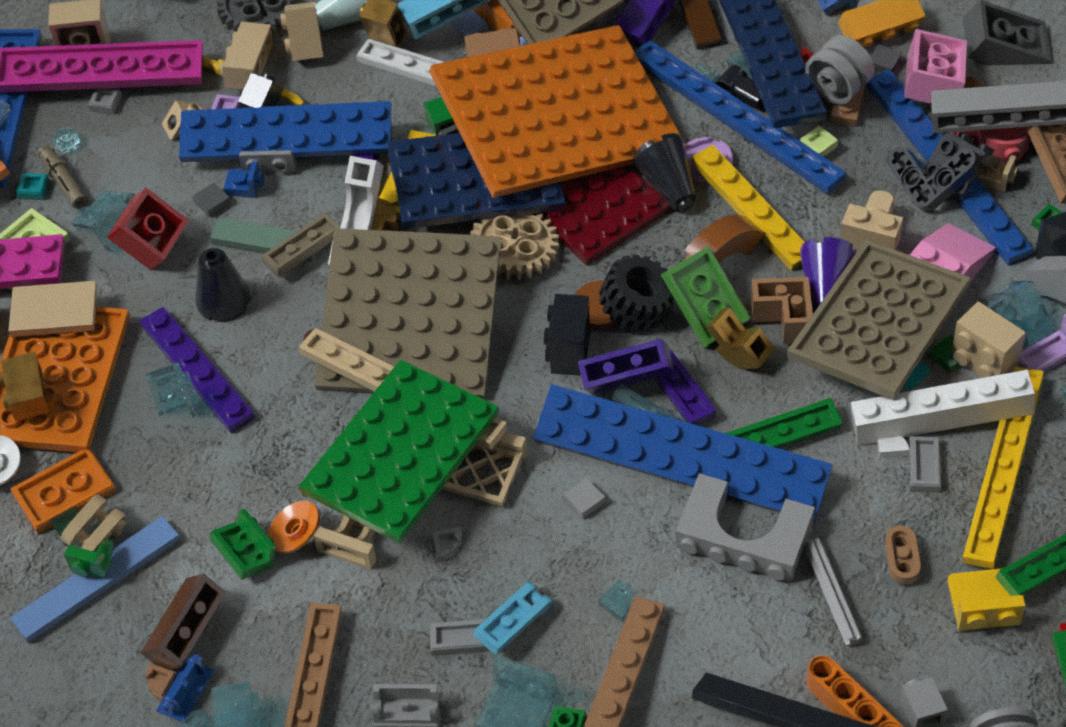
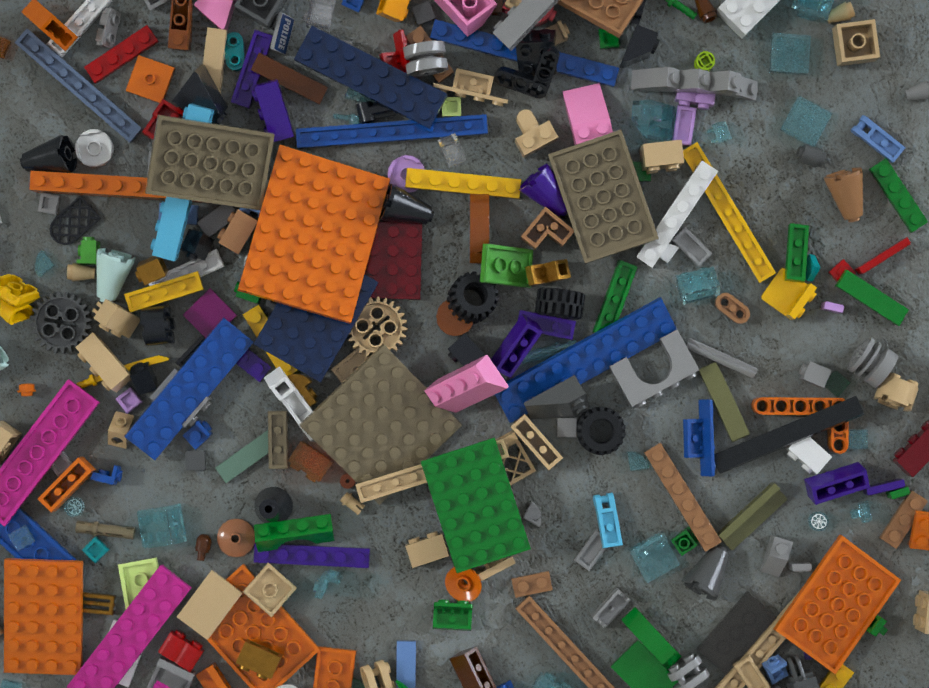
camera: 55 degrees left, 35 degrees up
(85, 109) = (66, 484): none -> orange brick
(118, 267) = (203, 545): none -> reddish brown cylinder
(119, 350) = (269, 589): none -> tan tile
(127, 142) = (105, 477): none -> blue bracket
(148, 228) = (198, 517): red brick -> none
(154, 291) = (243, 531): none -> nougat dish
(160, 25) = (26, 389): none -> orange plate
(231, 341) = (273, 534): none -> green arch
(292, 360) = (351, 503): none -> tan pin
(293, 458) = (427, 549): none -> tan brick
(304, 289) = (310, 461): none -> clear orange brick
(328, 66) = (157, 325): none -> black brick
(359, 604) = (531, 584): none -> medium nougat plate
(370, 51) = (164, 292): none -> yellow plate
(400, 100) = (208, 312): none -> magenta tile
(445, 43) = (196, 245): none -> black brick
(530, 336) = (466, 385): none -> bright pink slope
(535, 471) = (536, 442): none -> tan brick
(605, 452) = (561, 400): none -> dark grey slope
(610, 506) = (613, 442): none -> black tyre
(709, 637) = (700, 438): none -> blue bracket
(718, 368) = (560, 303): none -> black tyre
(773, 169) = (452, 150): none -> clear brick
(782, 631) = (724, 402): none -> olive slope
(862, 142) = (472, 84): none -> tan bracket
(888, 493) = (698, 285): none -> clear light blue brick
(1022, 658) = (832, 307): none -> lavender tile
(1042, 601) = (812, 267): none -> teal tile

